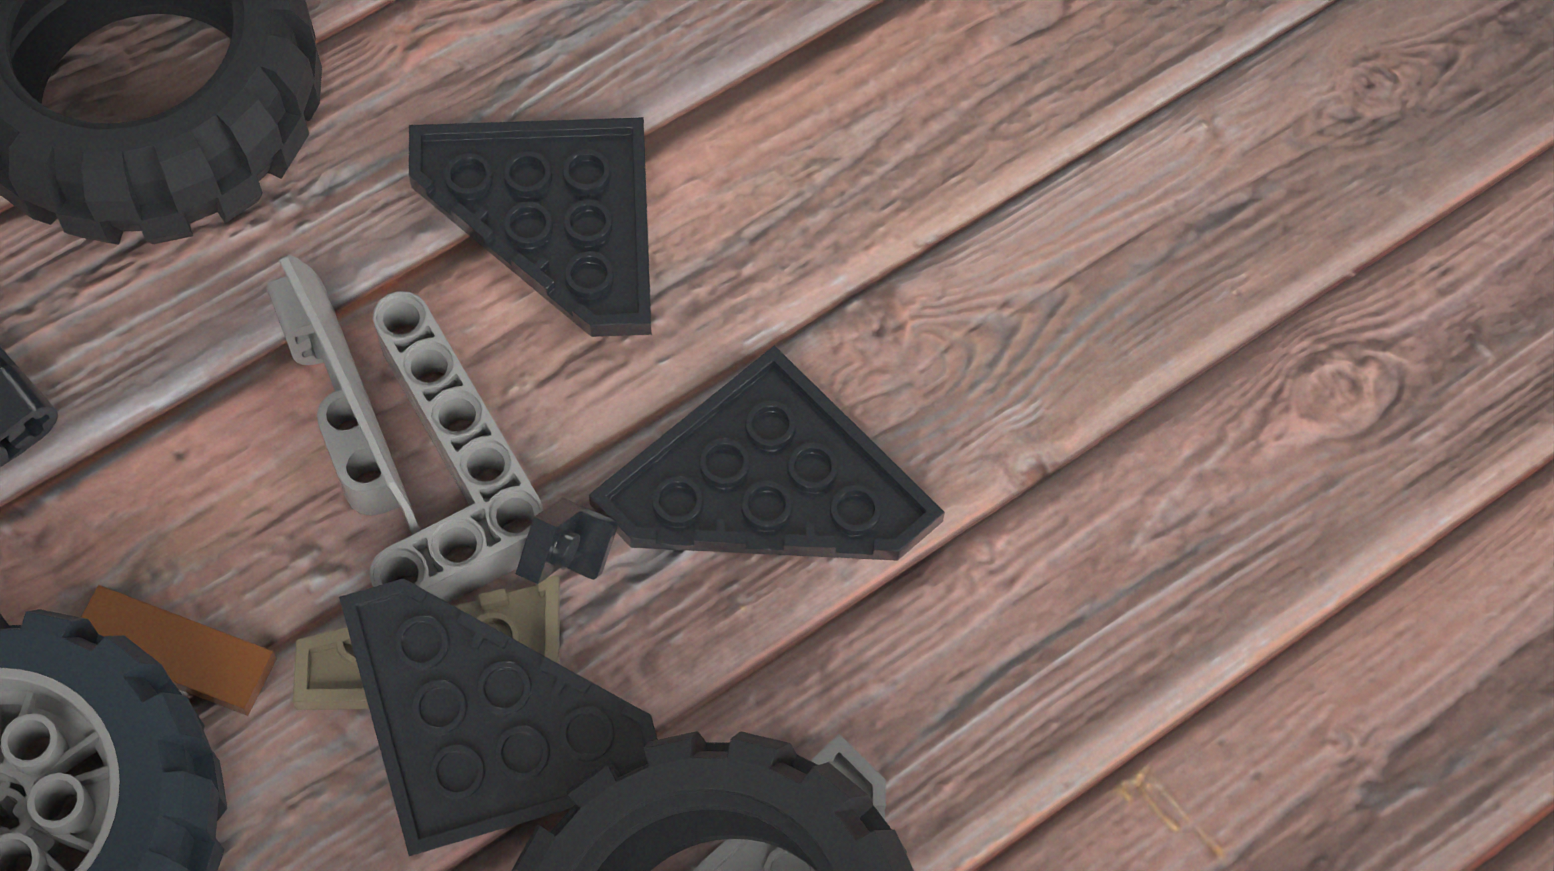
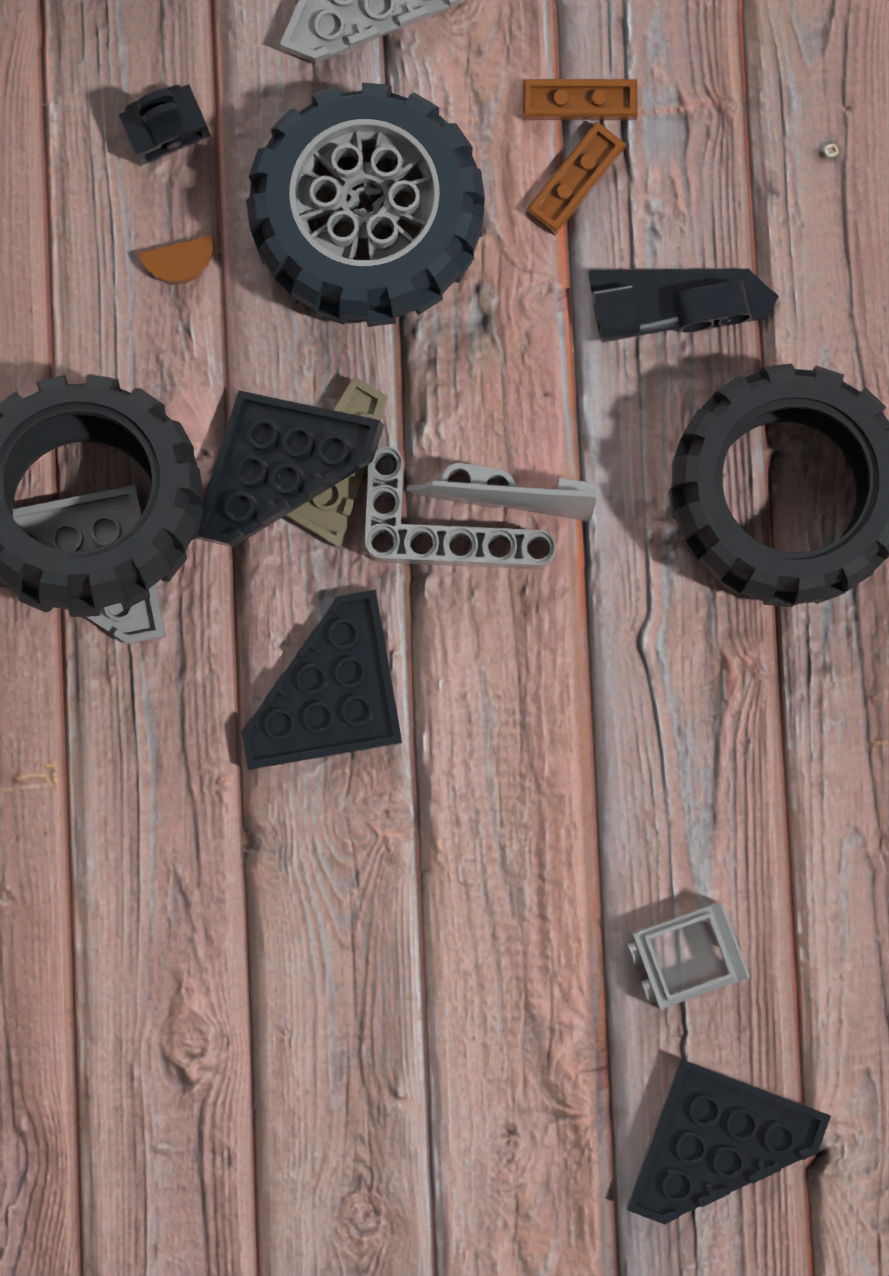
camera: 130 degrees right, 20 degrees up
(192, 654) = (426, 335): dark orange tile -> none
(553, 206) = (570, 677): black plate -> none
(566, 538) = (358, 563): black bracket -> none

